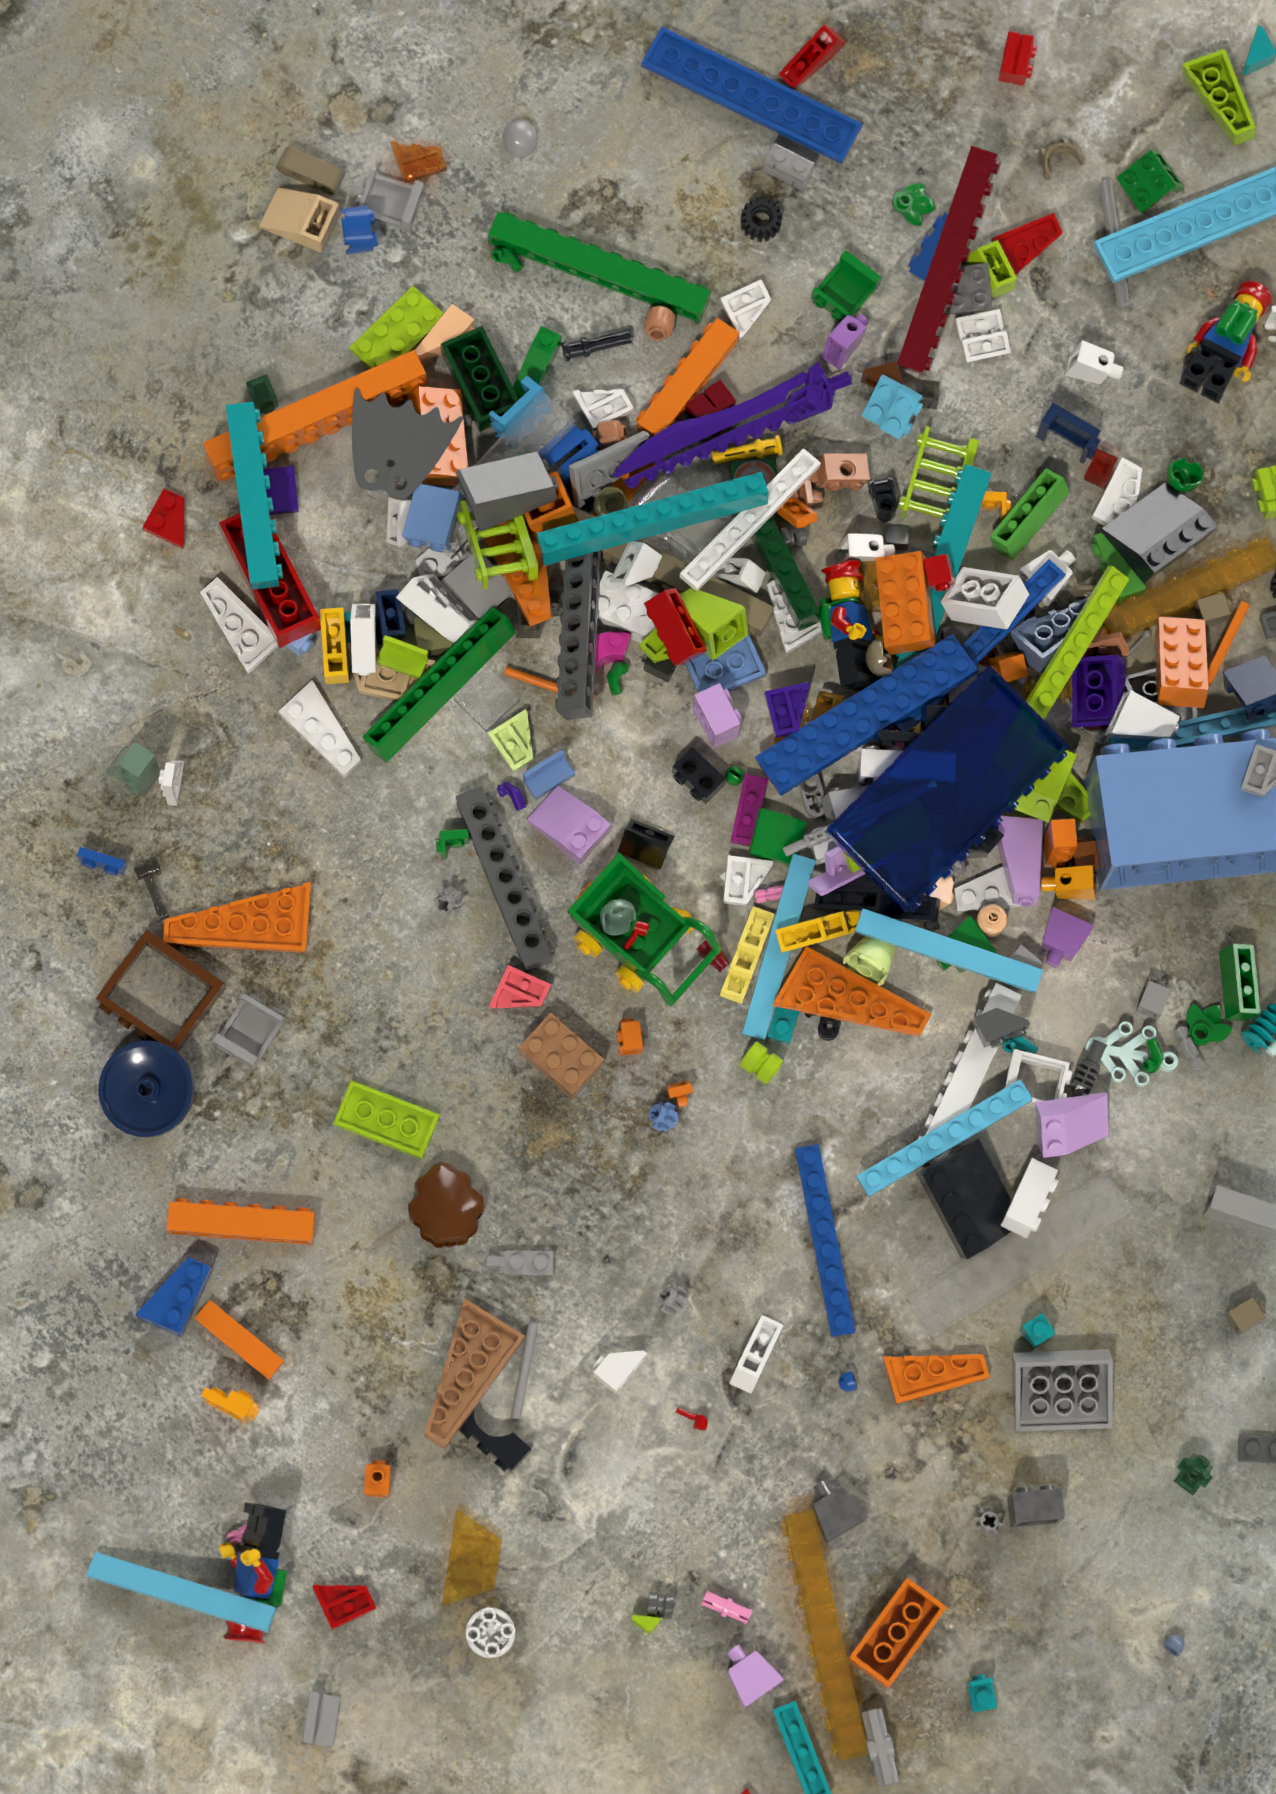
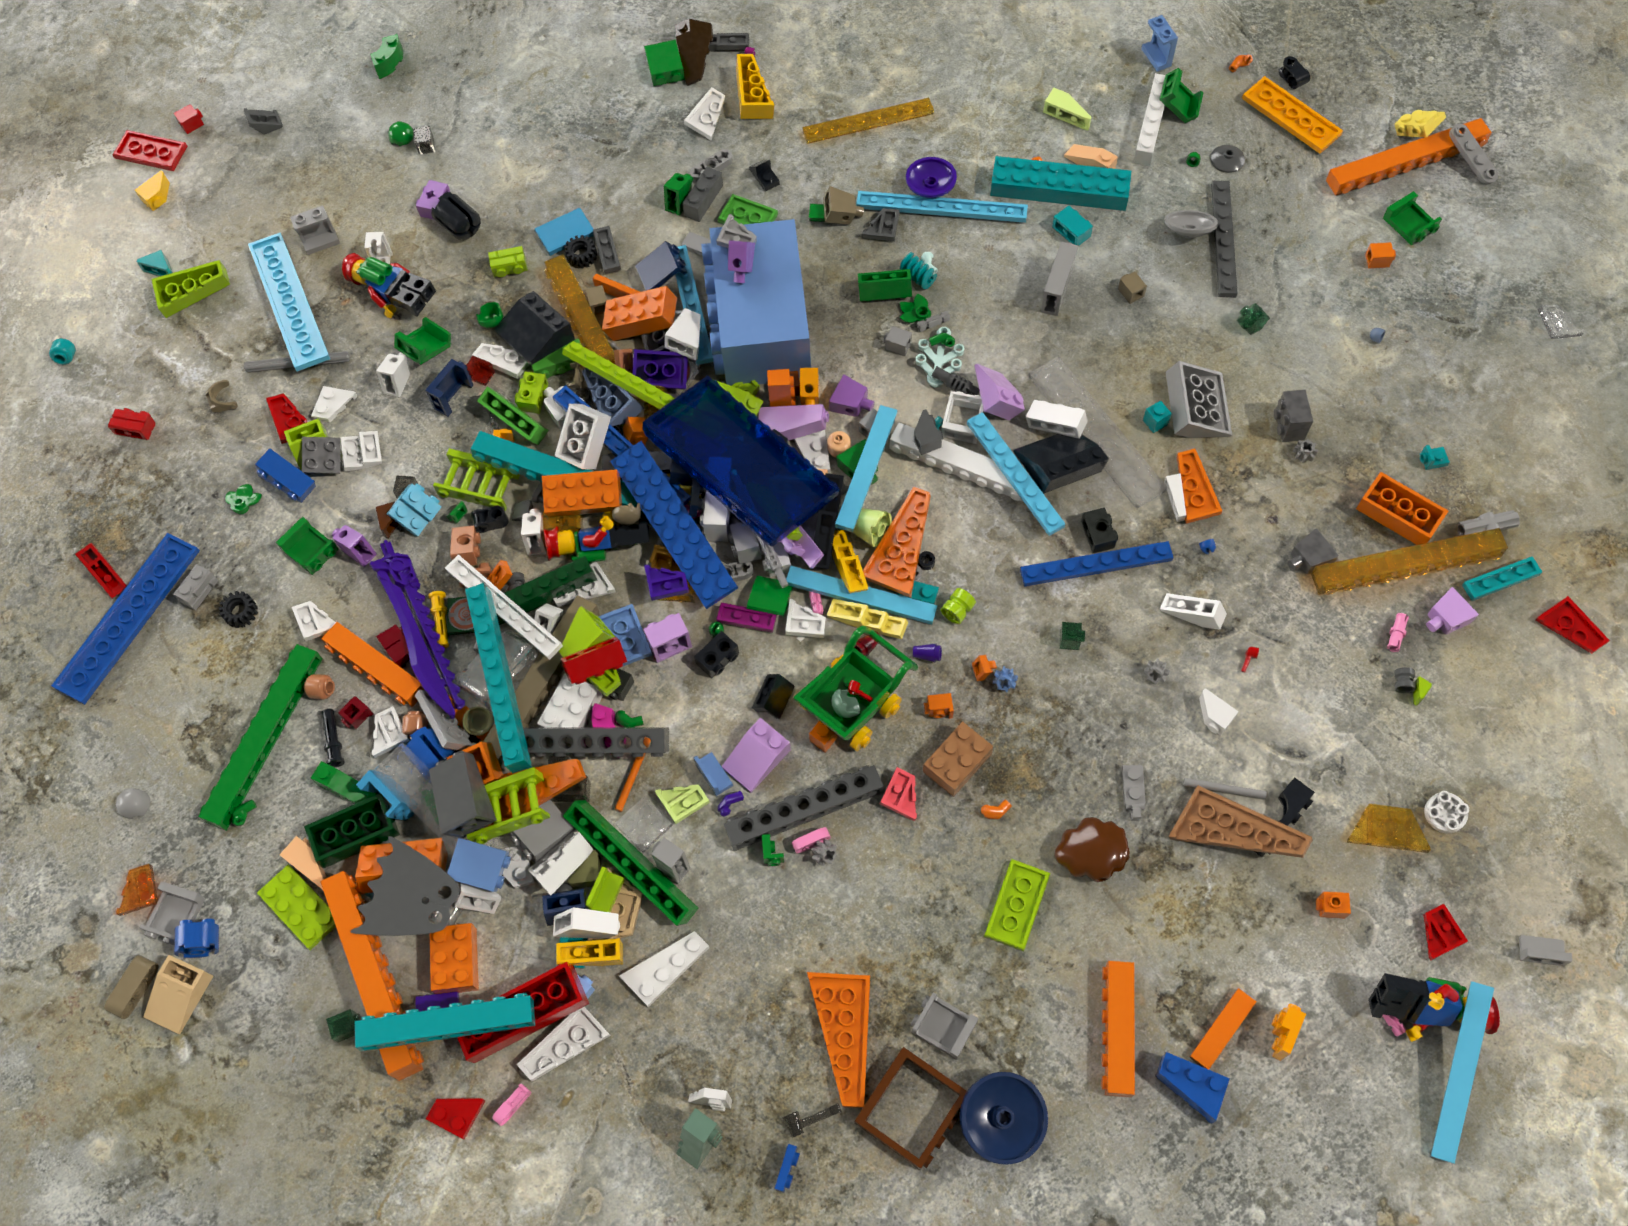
camera: 80 degrees left, 10 degrees down
(175, 575) = (511, 1105): none -> bright pink piece
(331, 503) = (454, 959): none -> orange brick
(435, 726) = (670, 860): none -> light grey brick
(464, 885) = (809, 840): none -> bright pink beam
(496, 1097) = (995, 812): none -> orange arm
(626, 359) = (354, 713): none -> dark red brick
(636, 564) = (535, 695): white slope -> none
(701, 1027) = (928, 652): none -> dark purple cone
(720, 1199) = (1071, 636): none -> clear green brick
(880, 1235) = (1099, 540): none -> pearl dark grey brick
(894, 459) = (457, 513): none -> green slope
(934, 1346) = (1176, 495): none -> white piece
(939, 572) = (559, 465): red brick -> none
(948, 261) = (295, 461): dark red brick -> none
(1052, 292) = (331, 402): none -> white wing
(1068, 535) = (531, 390): none -> lime brick
(1140, 395) = (424, 342): none -> green panel
(1149, 180) = (250, 337): green bracket -> none
(1223, 774) = (741, 252): none -> medium lavender torso

